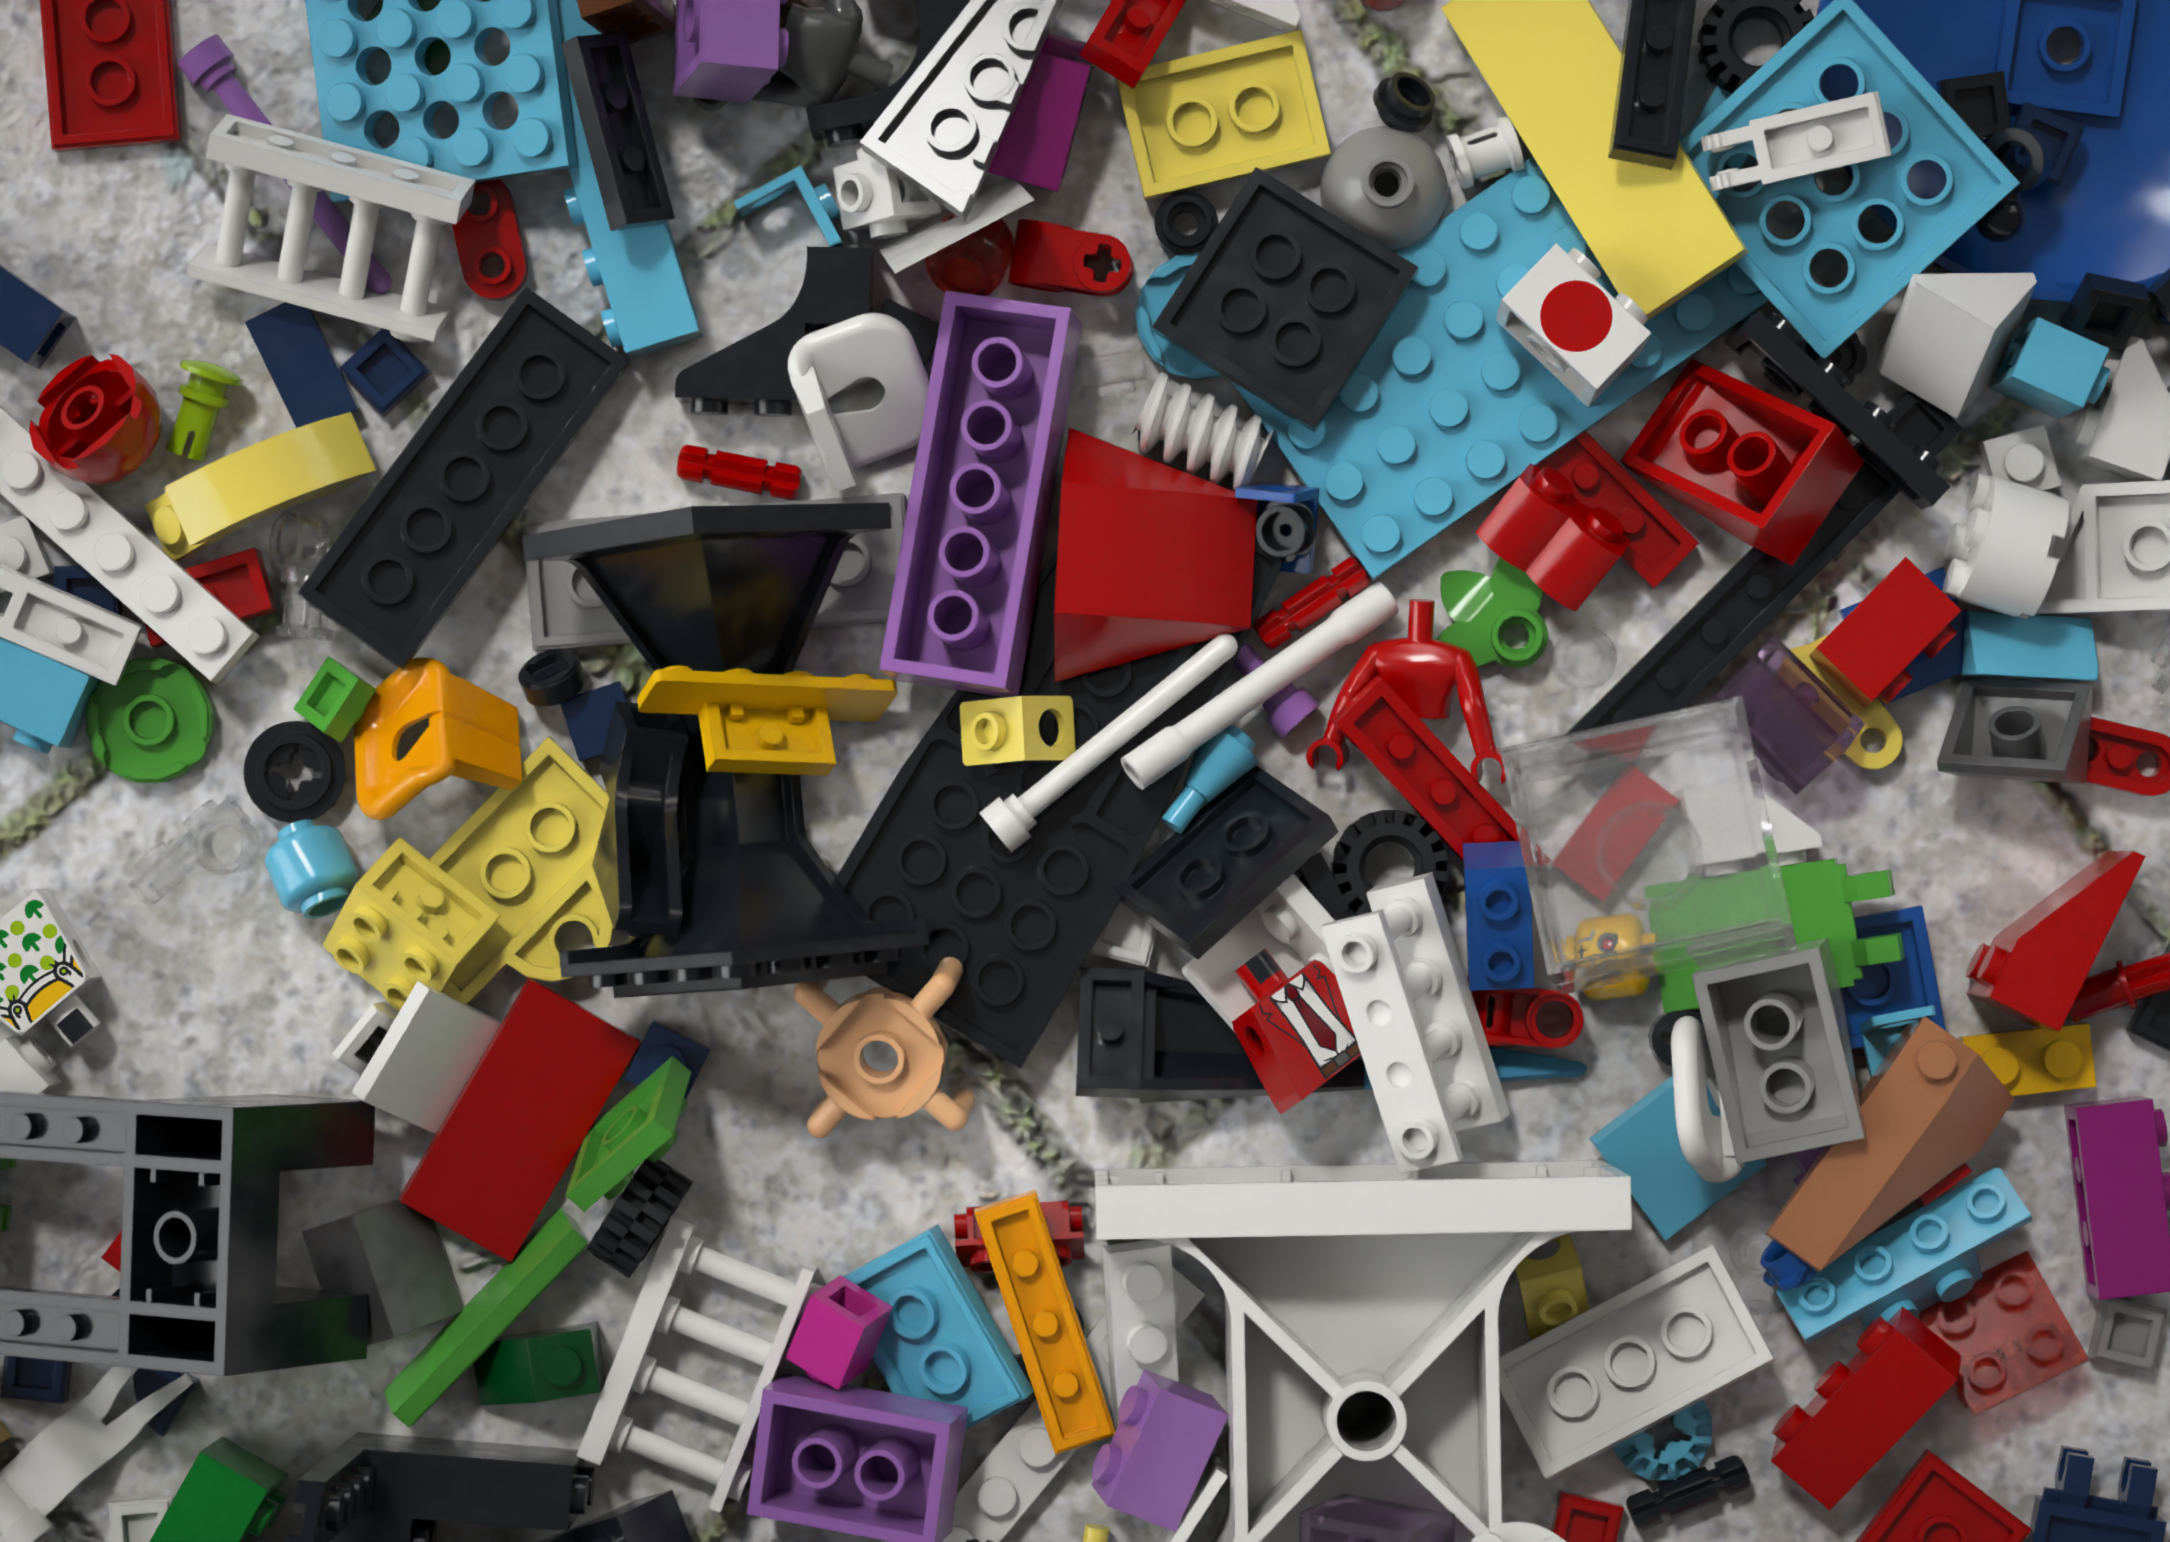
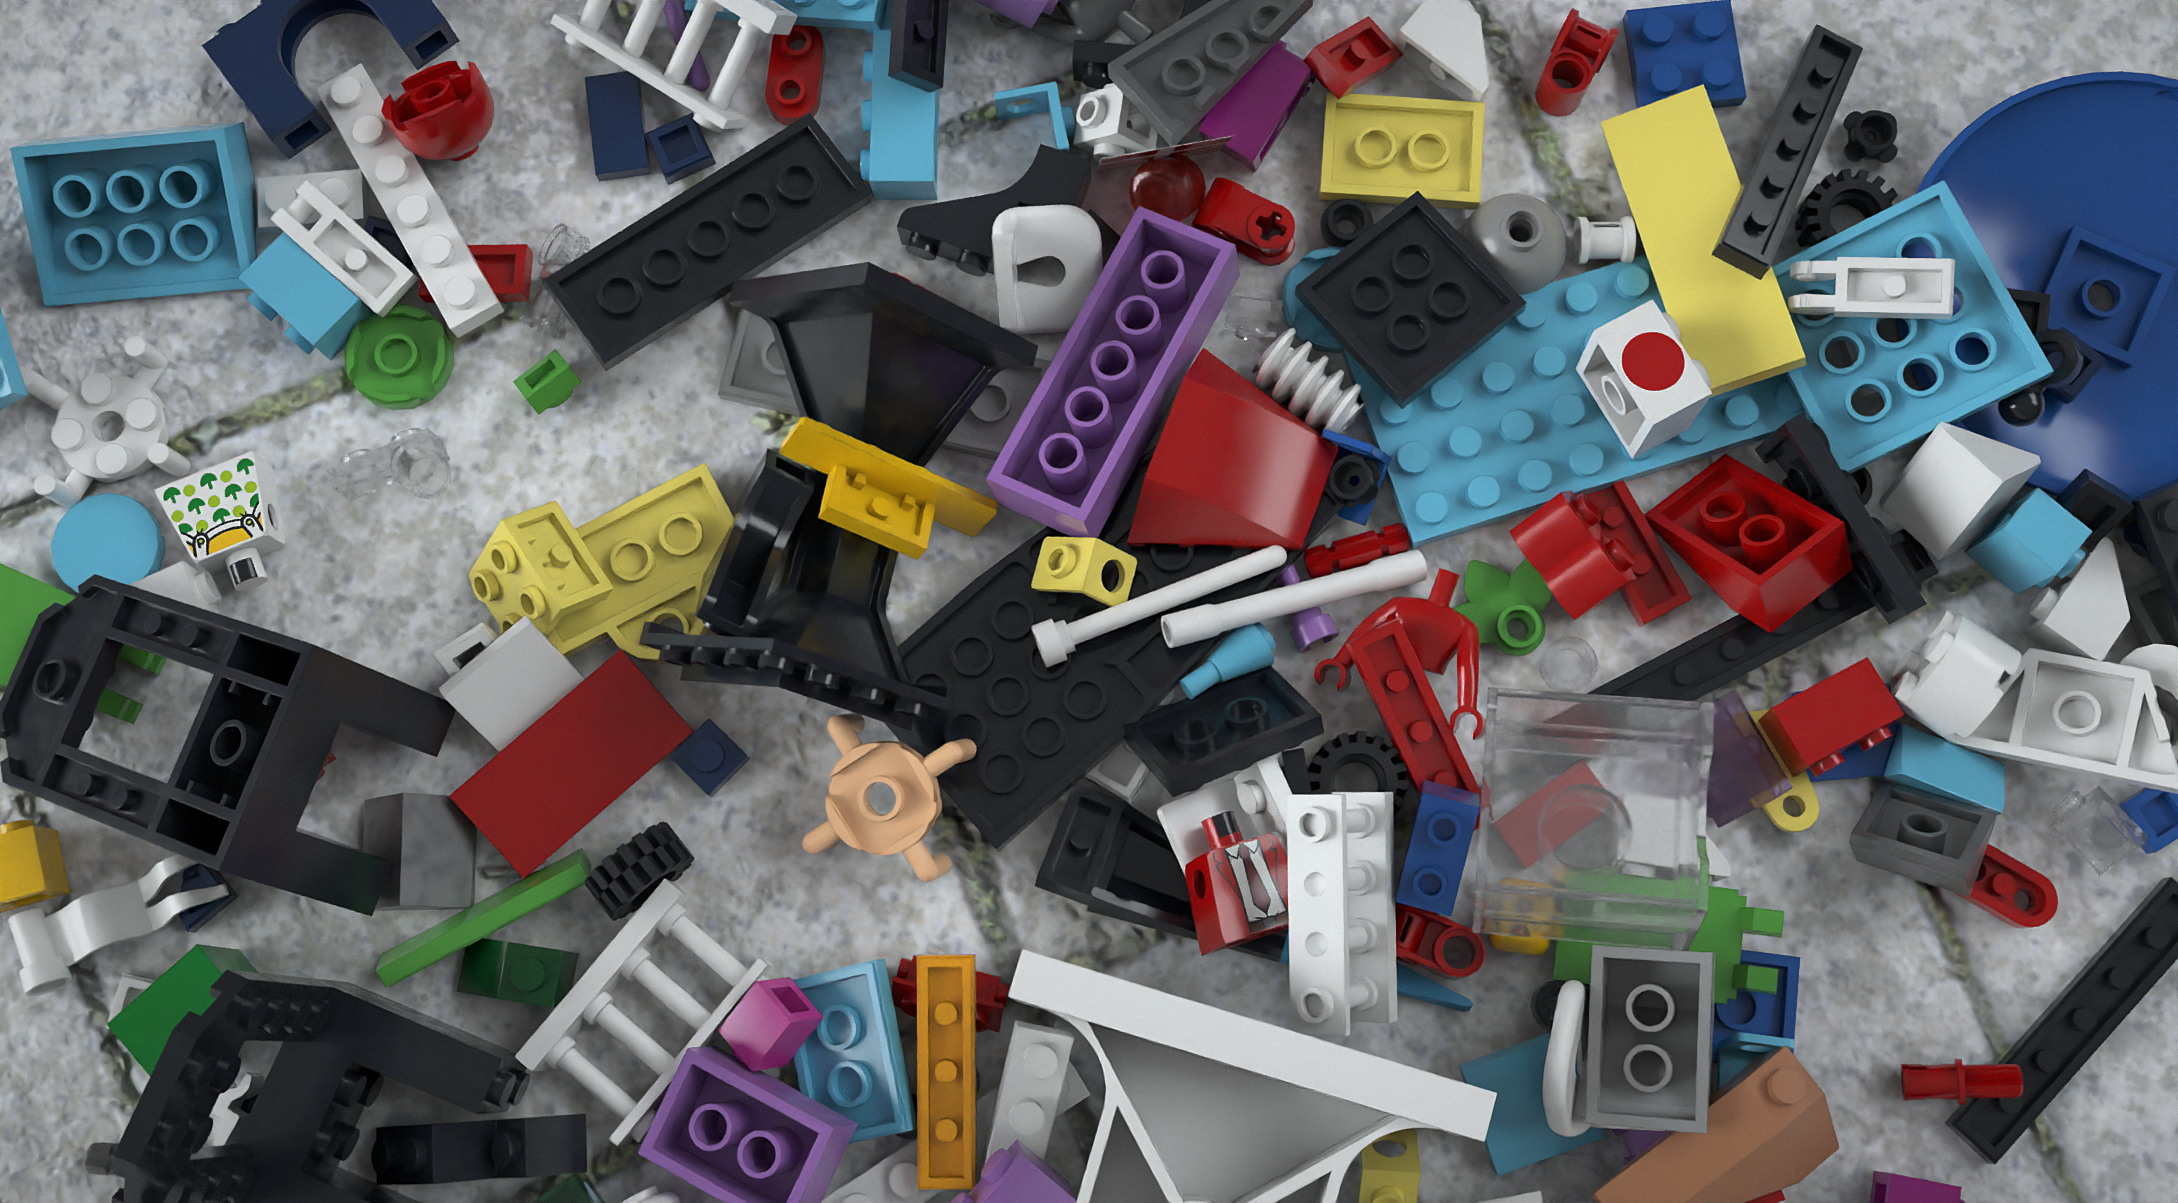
camera: 25 degrees right, 10 degrees down
(36, 1379) = (107, 849): dark blue tile -> none
(200, 406) = (526, 129): lime pin -> none
(258, 483) = (548, 188): light yellow arch -> none
(278, 747) = (492, 407): black gear -> none
(311, 869) = (475, 505): medium azure head -> none
(466, 737) = (635, 434): light orange piece -> none
(552, 677) = (724, 418): black tile -> none
(589, 718) = (741, 460): dark blue tile -> none
(628, 1134) = (658, 797): bright green plate -> none
(1404, 102) = (1550, 183): black plate -> none
(2022, 458) = (1984, 608): white plate -> none
(2038, 1058) = (1872, 1124): yellow plate -> none
(2047, 952) = (1898, 1035): red slope -> none

